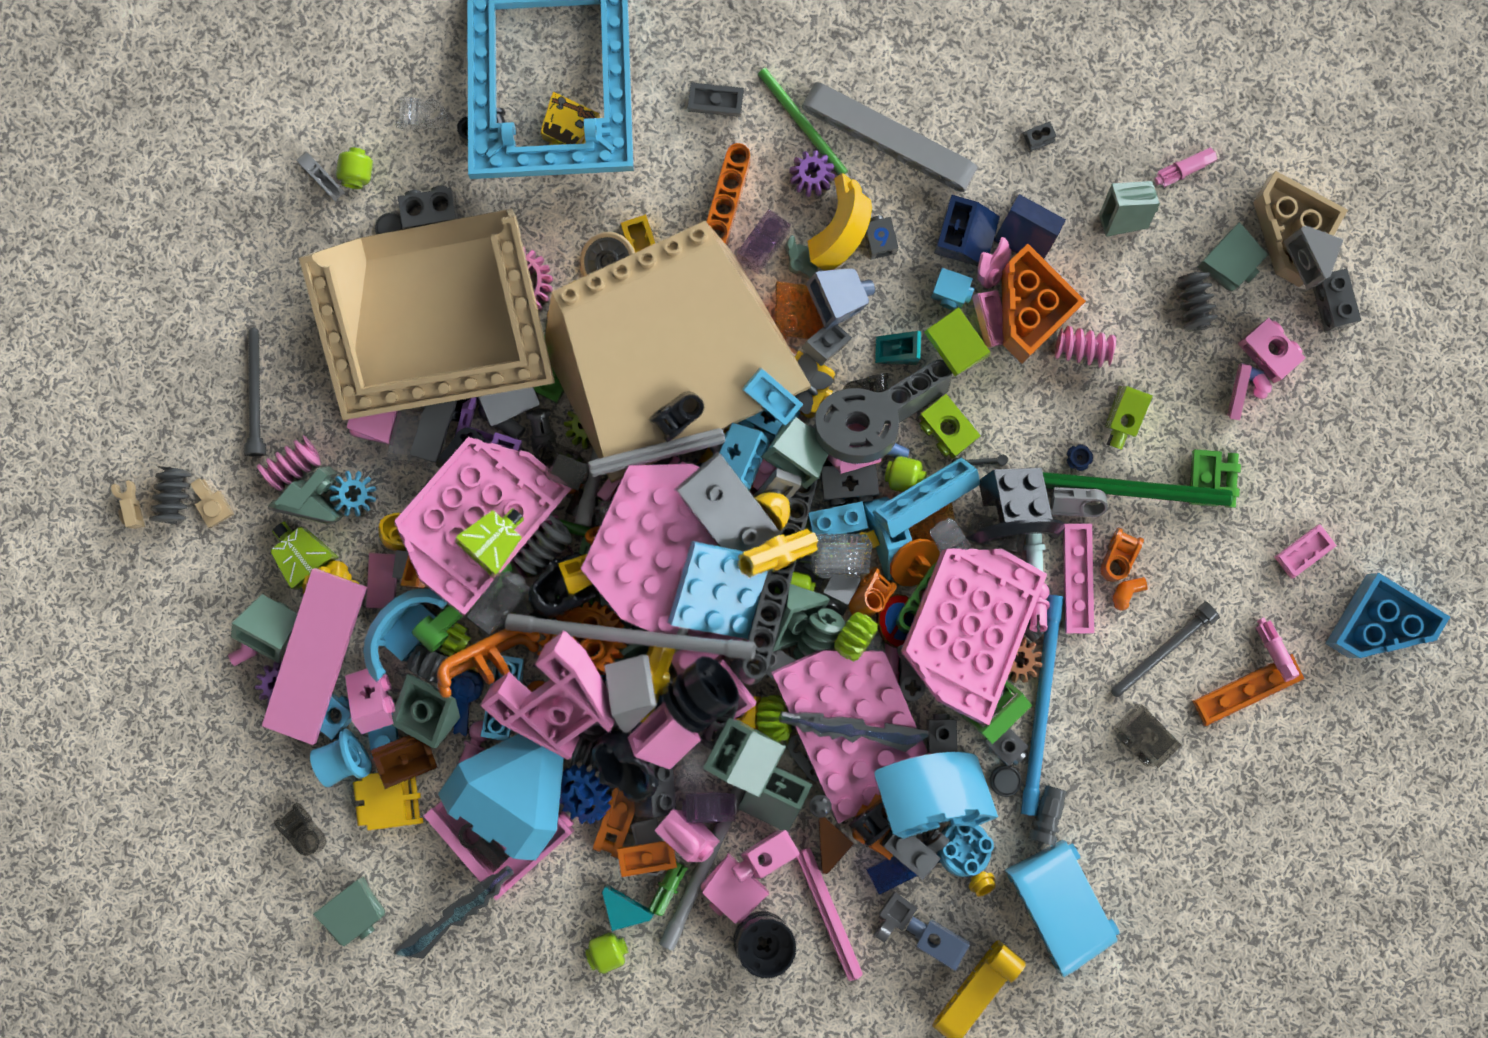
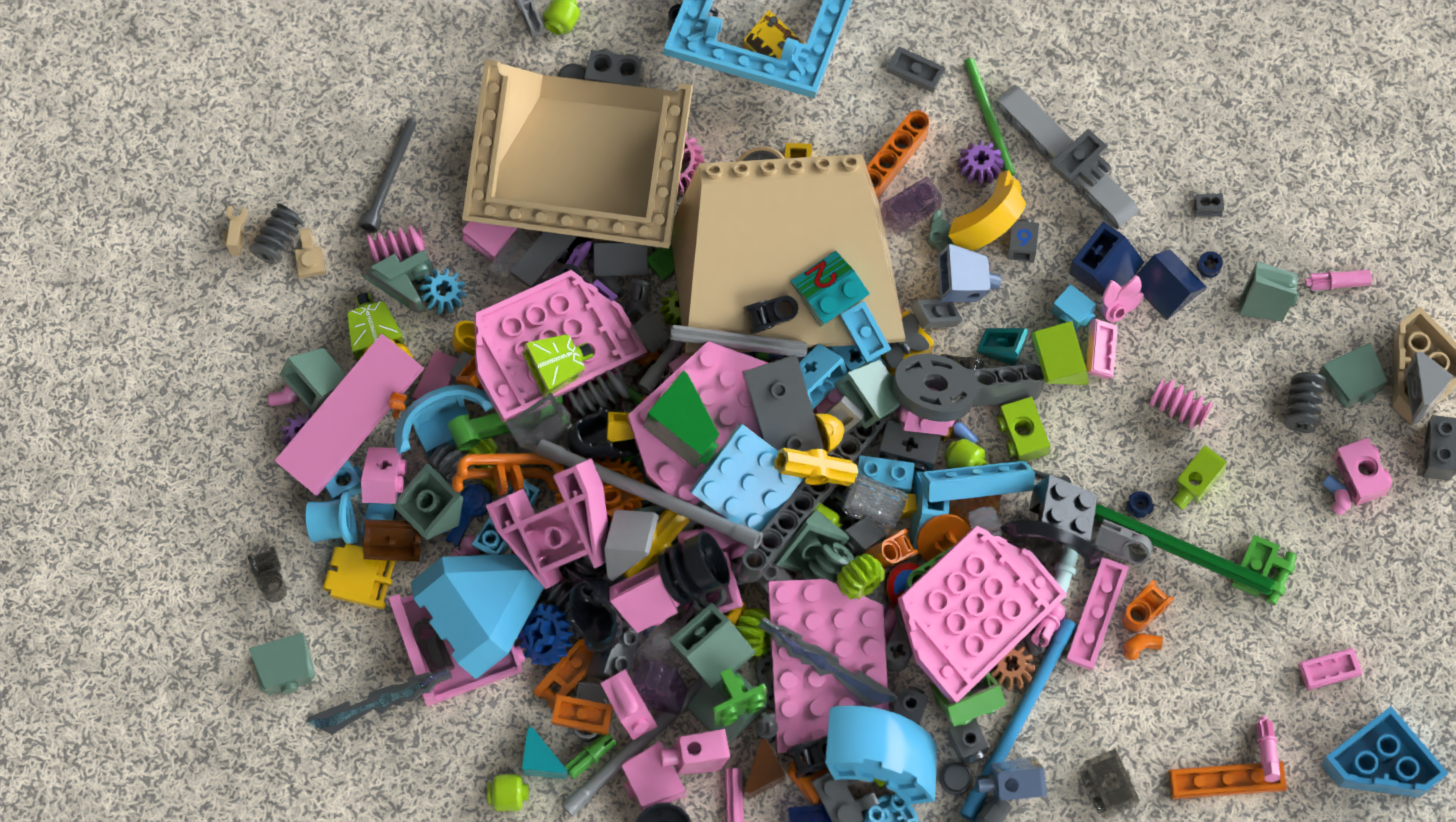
camera: 20 degrees right, 15 degrees down
(354, 631) = (396, 402): none -> orange hand
(639, 563) = (683, 423): none -> green slope
(724, 369) = (829, 288): none -> teal slope
(783, 796) = (738, 700): none -> bright green bracket
(796, 311) = (917, 275): clear orange hinge -> none
(910, 138) = (1082, 160): none -> dark grey hinge
(1033, 303) = (1147, 347): orange brick -> none
(1064, 769) = (1024, 775): none -> sand blue torso
(1069, 198) = (1215, 257): none -> dark blue bush
(1205, 615) = (1209, 693): dark grey piece -> none
(1239, 391) = (1316, 495): bright pink tile -> none

